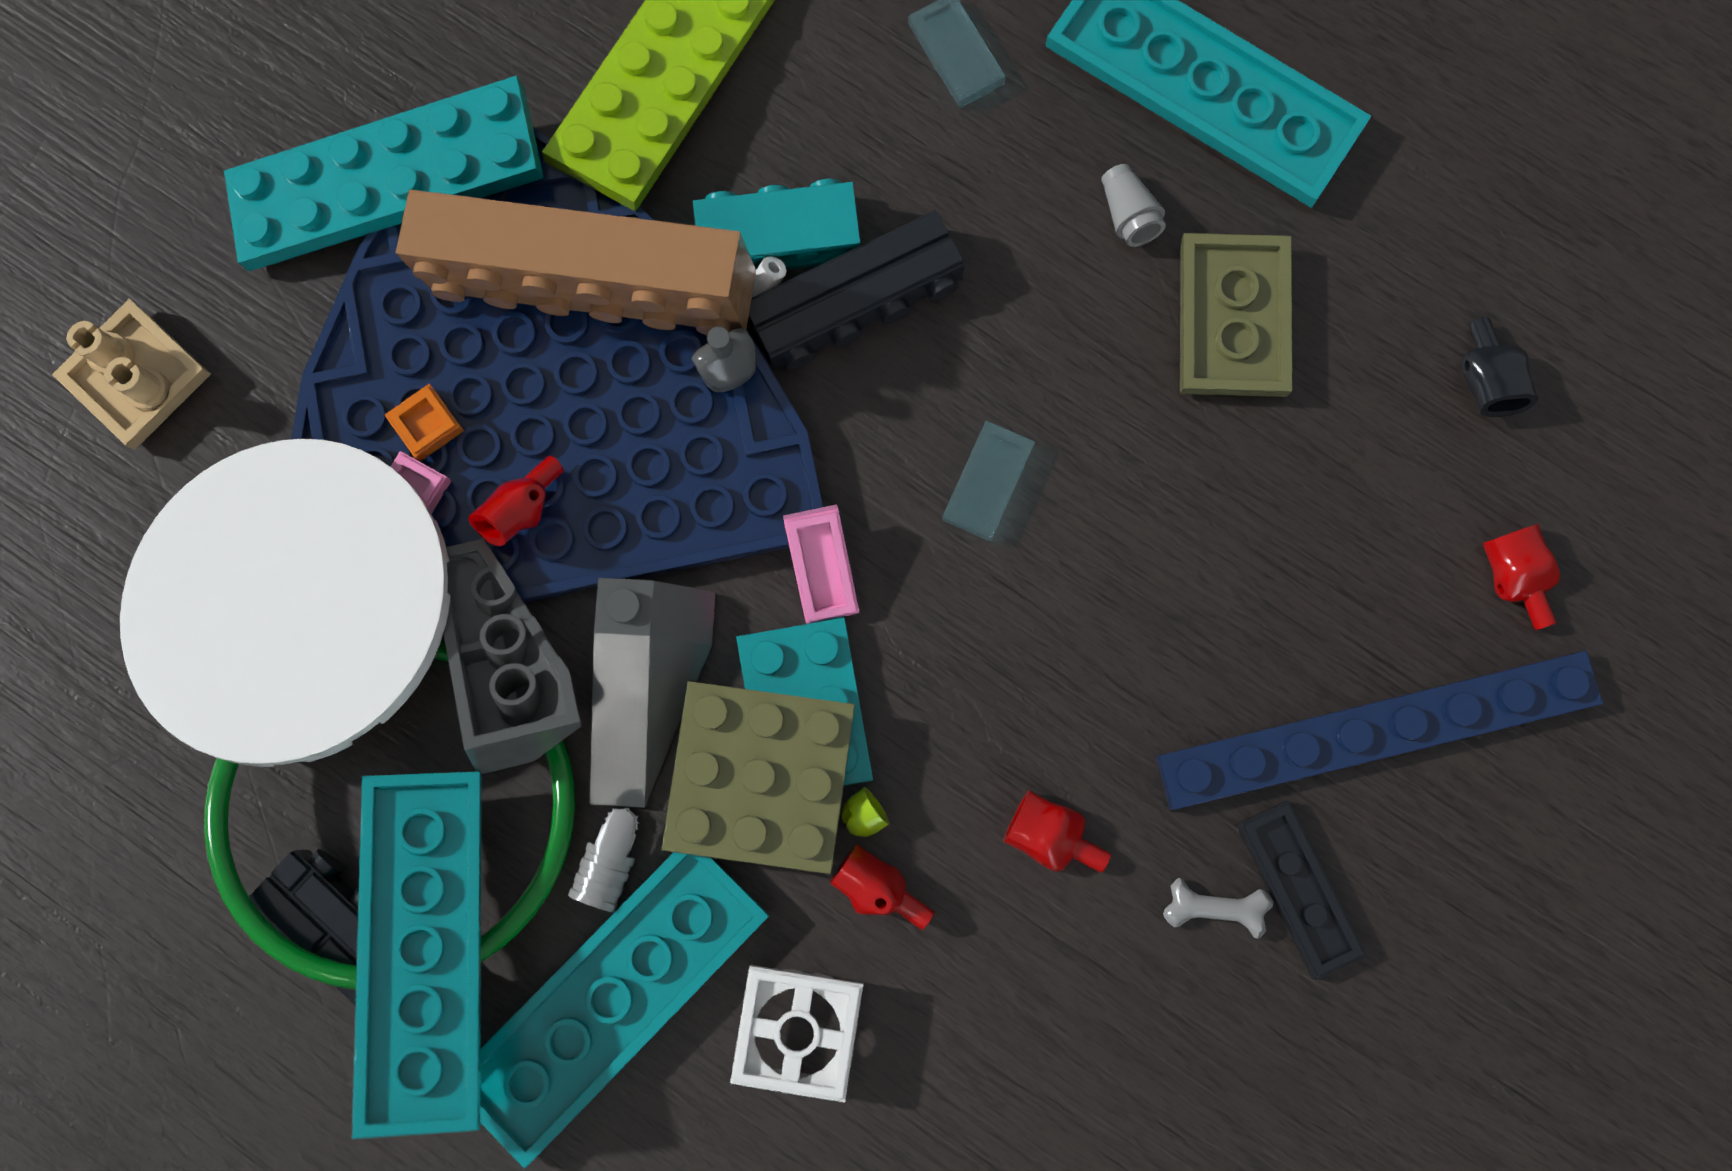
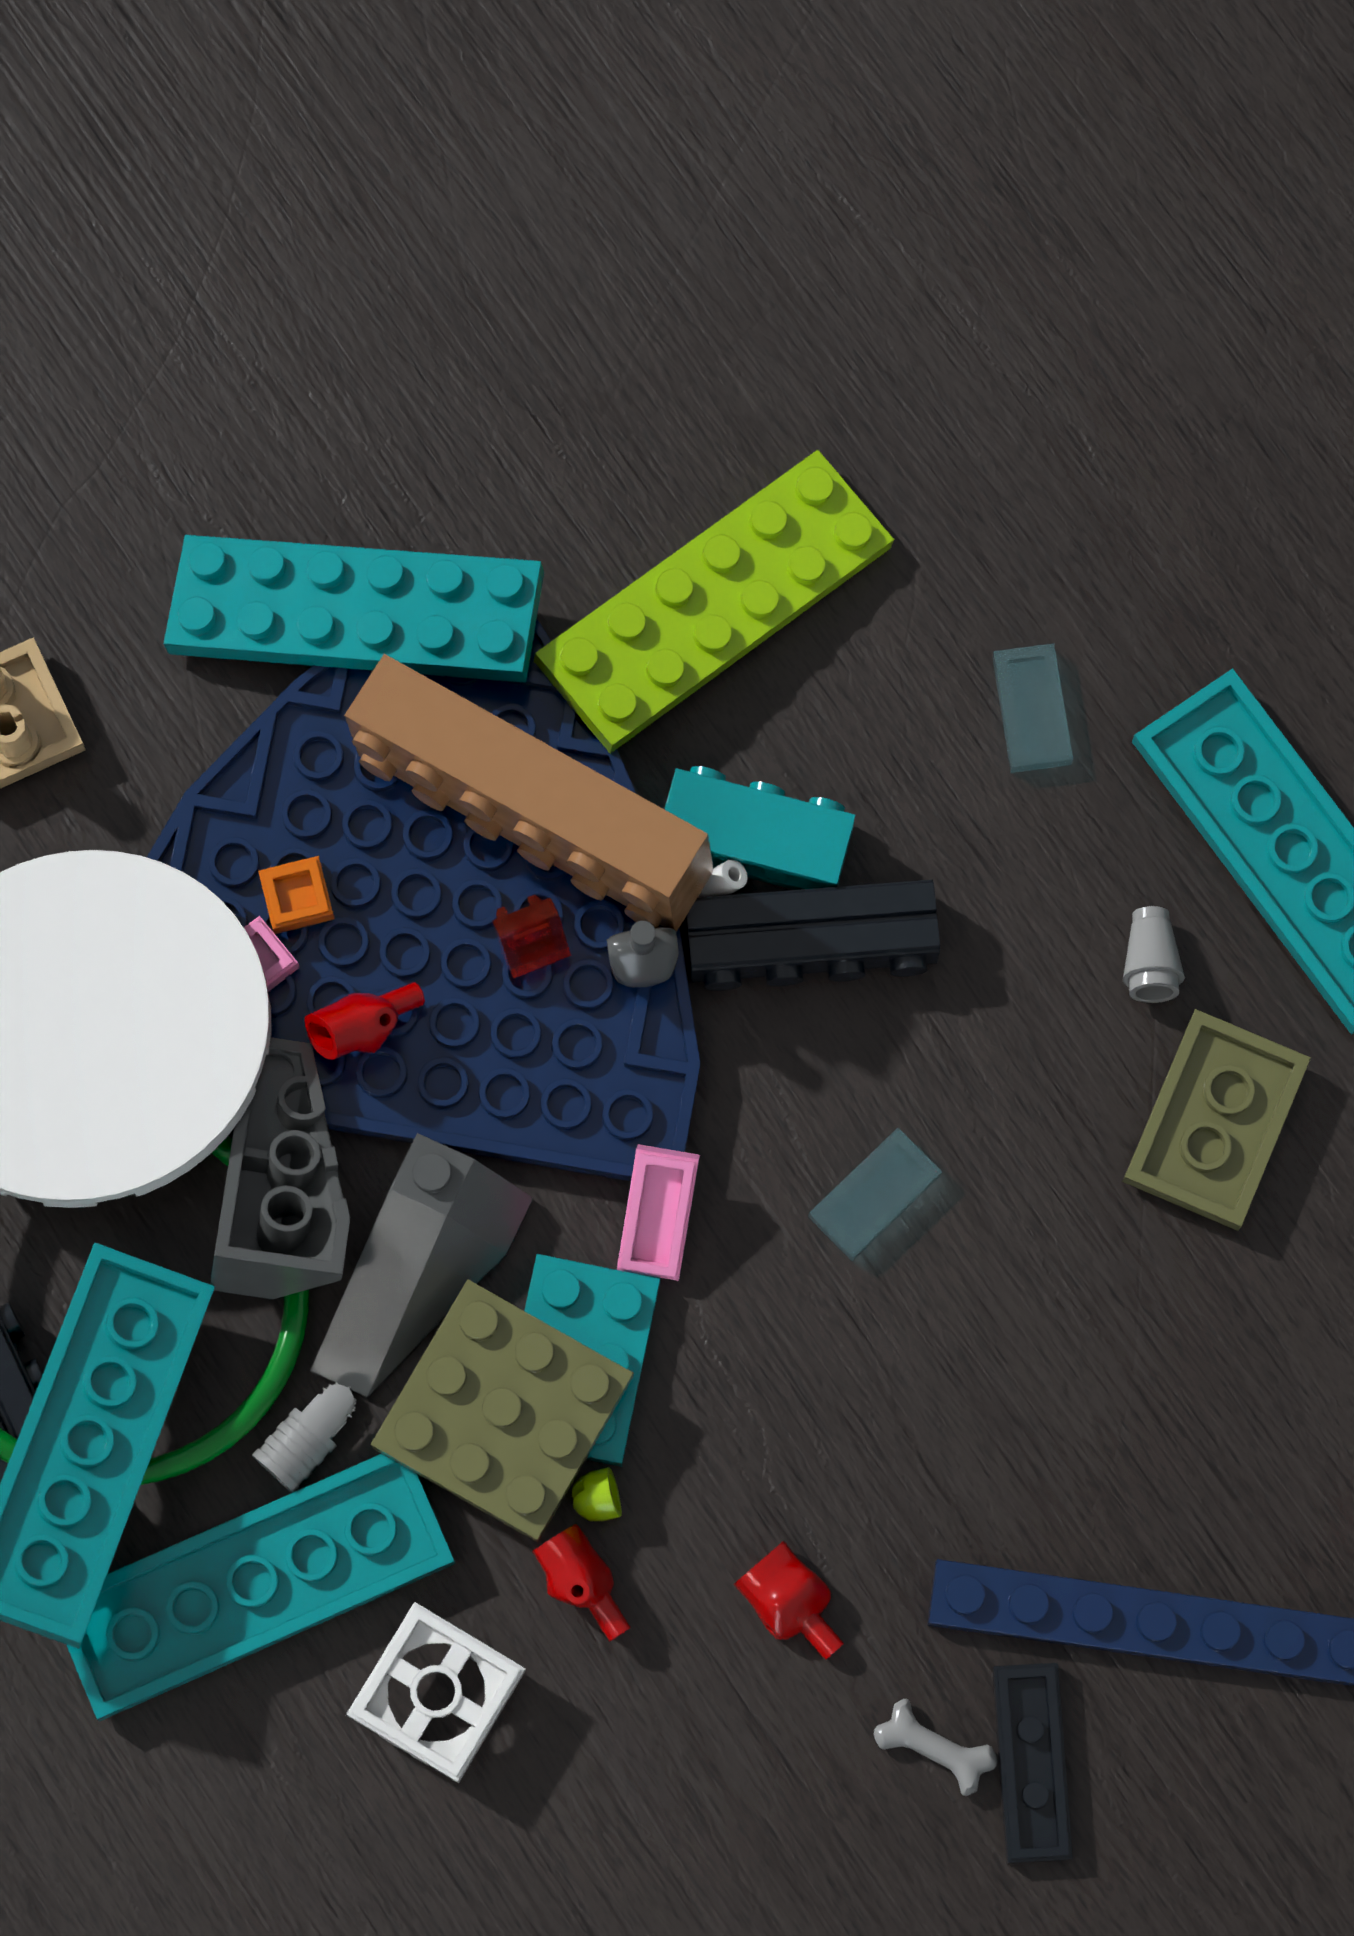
camera: 15 degrees right, 5 degrees down
(629, 380) = (531, 936): none -> clear red tile

